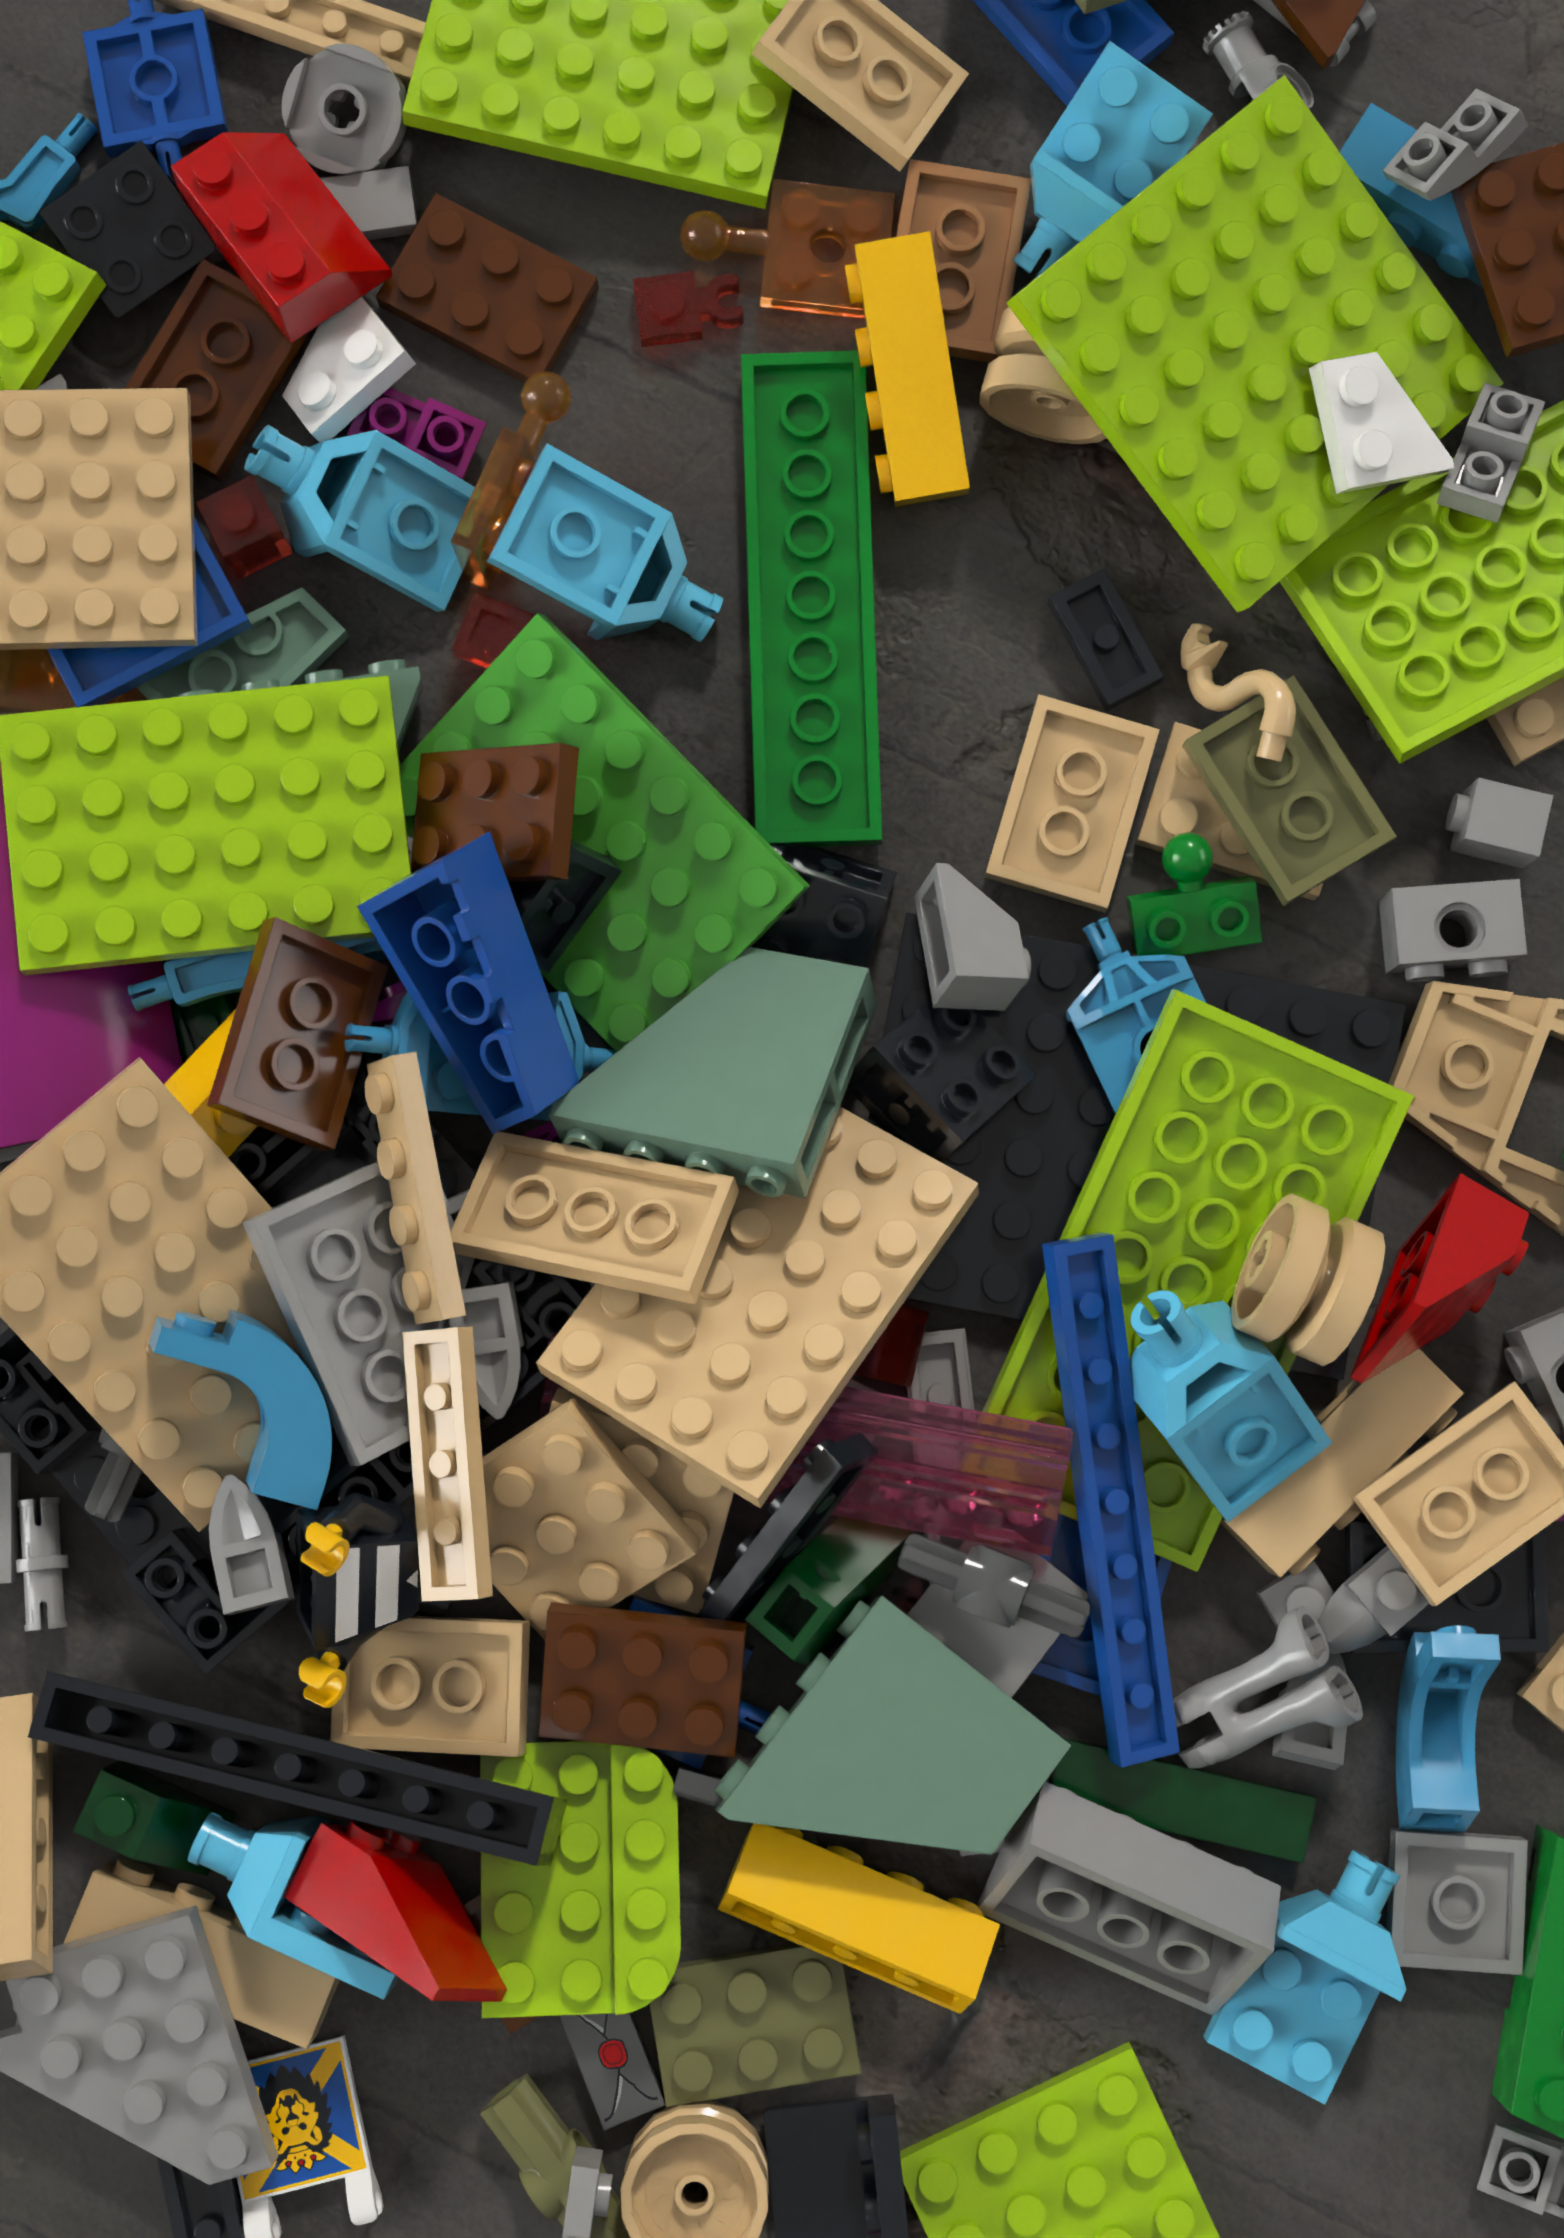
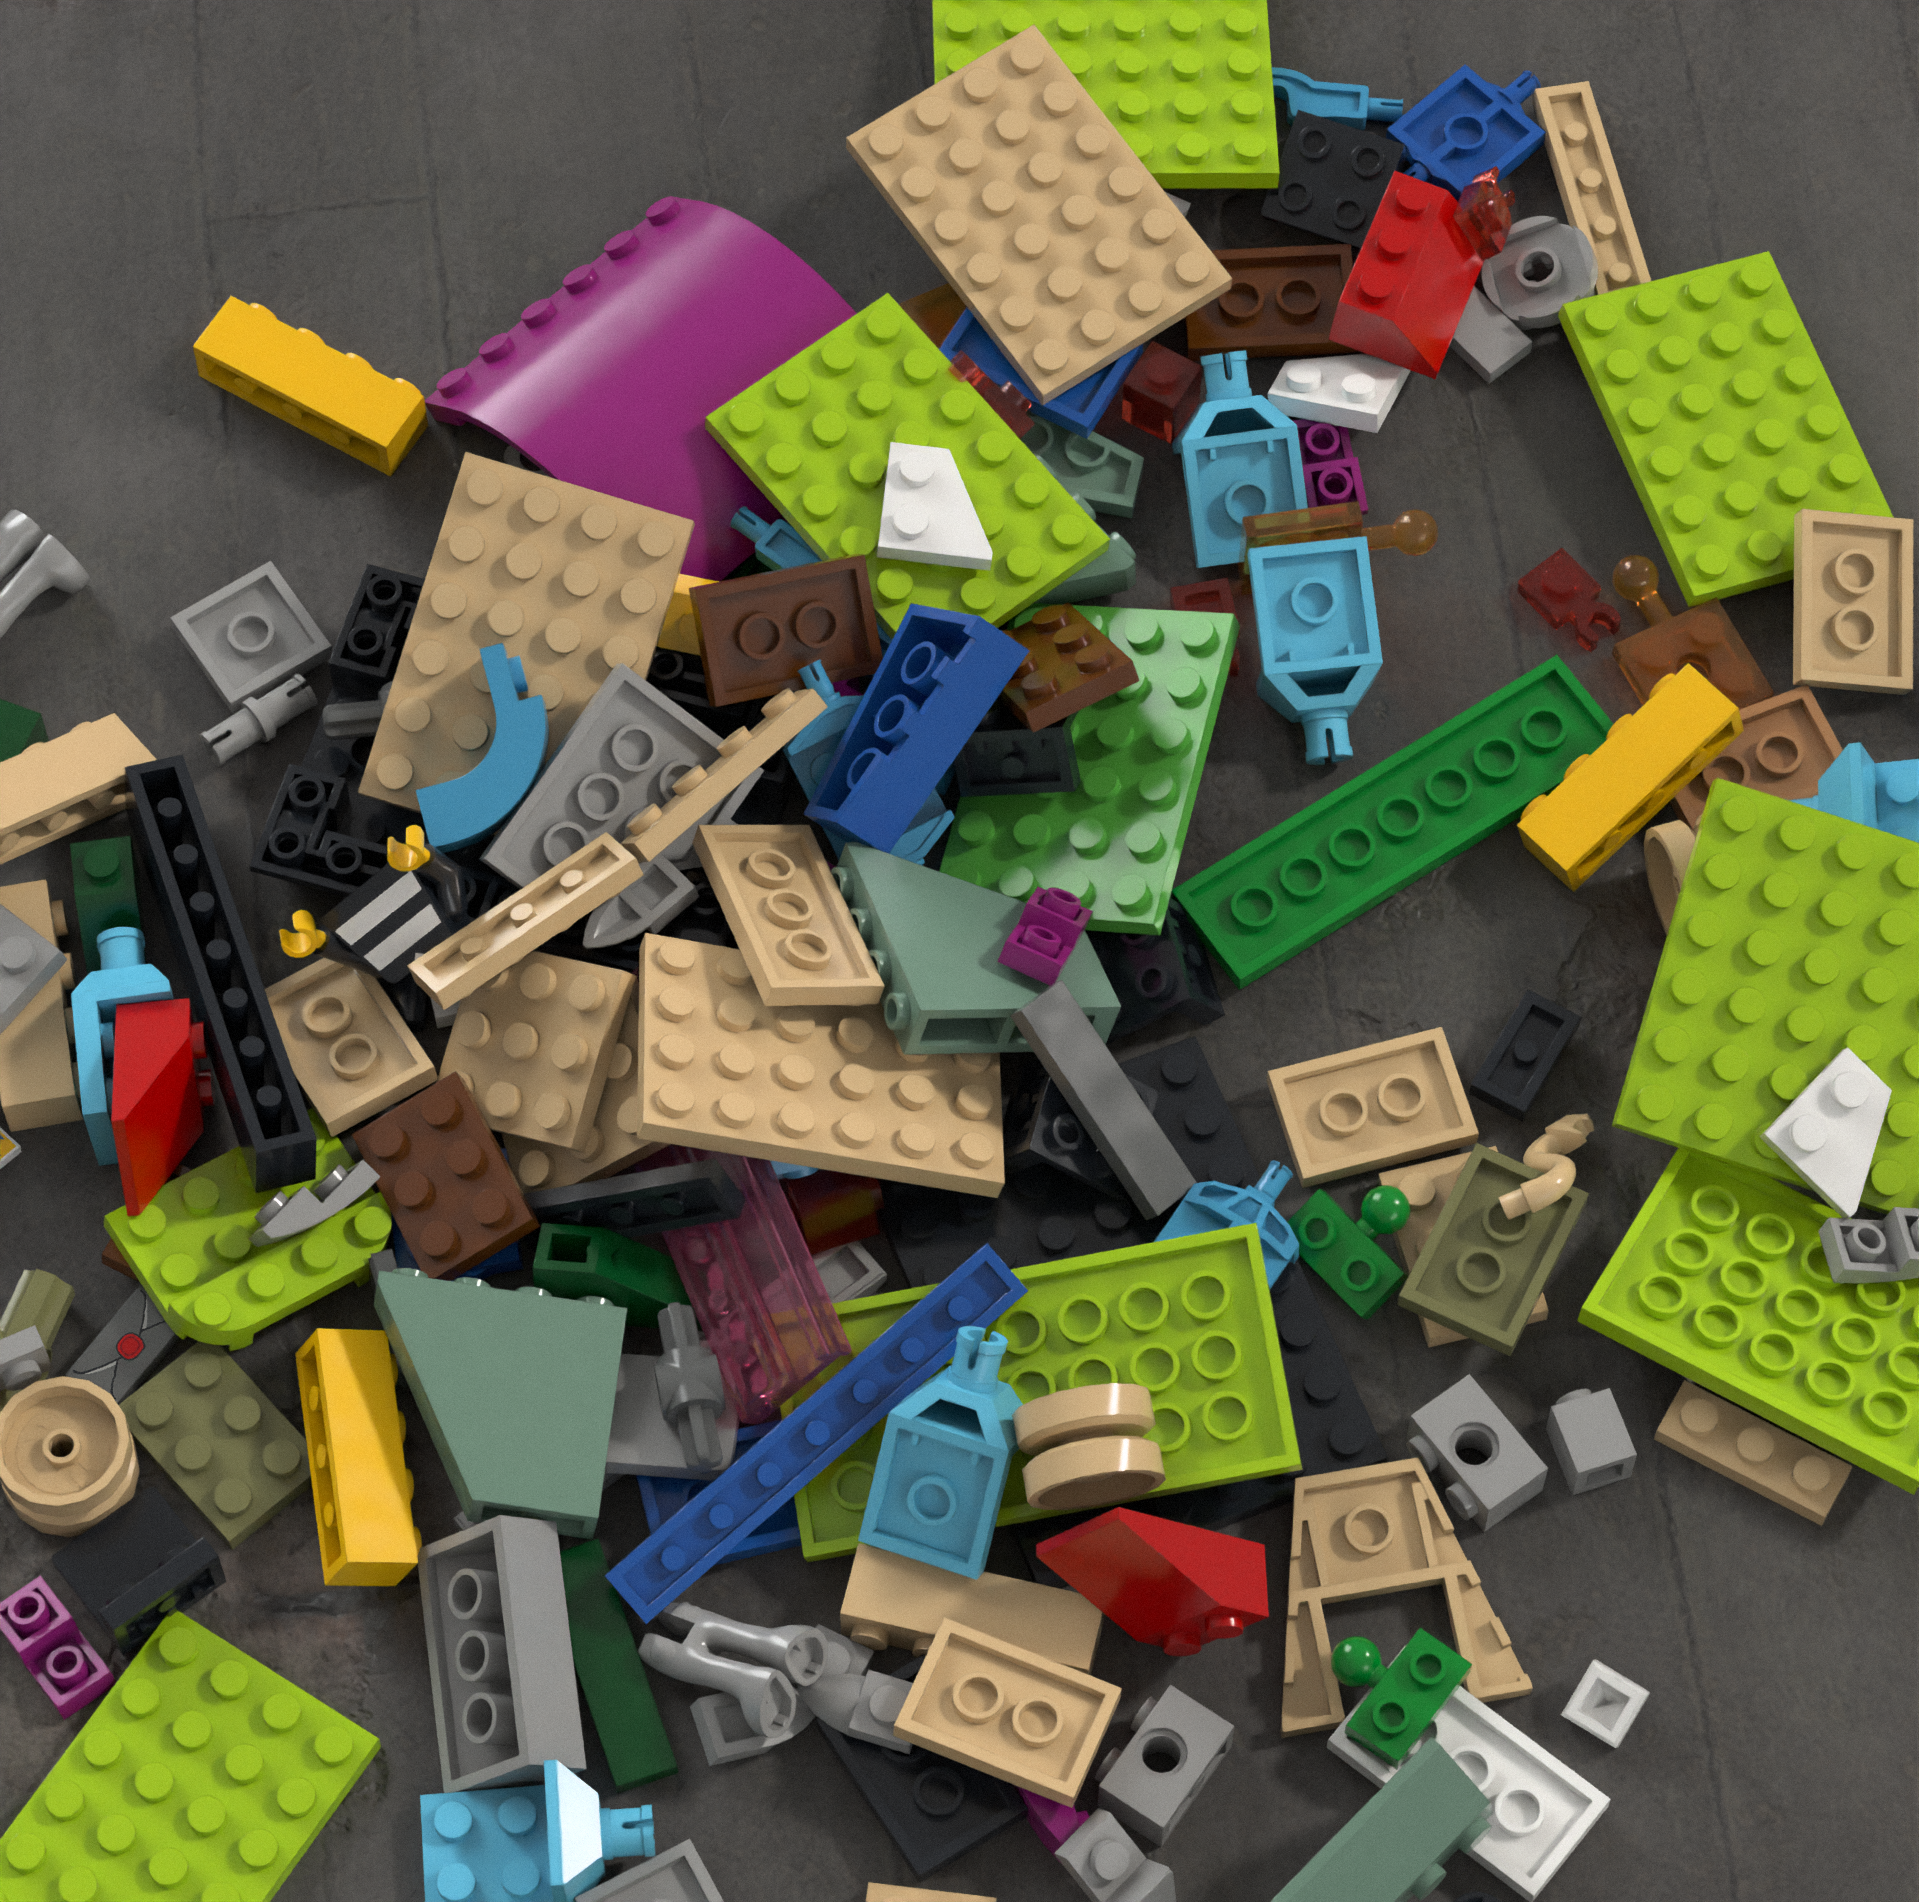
camera: 55 degrees right, 20 degrees down
(175, 678) = (1005, 401): none -> clear red plate
(246, 1551) = (359, 830): light grey plate -> none
(259, 116) = (1485, 213): none -> clear red plate
(261, 825) = (929, 511): none -> white wing
(487, 290) = (1477, 455): reddish brown plate -> none
(601, 1845) = (301, 1210): none -> light grey slope
(760, 993) = (1046, 934): none -> magenta slope
(952, 1043) = (1103, 1100): none -> dark grey tile
(968, 944) = (1194, 1078): light grey slope -> none
(1438, 1727) = (804, 1818): dark azure arch -> none

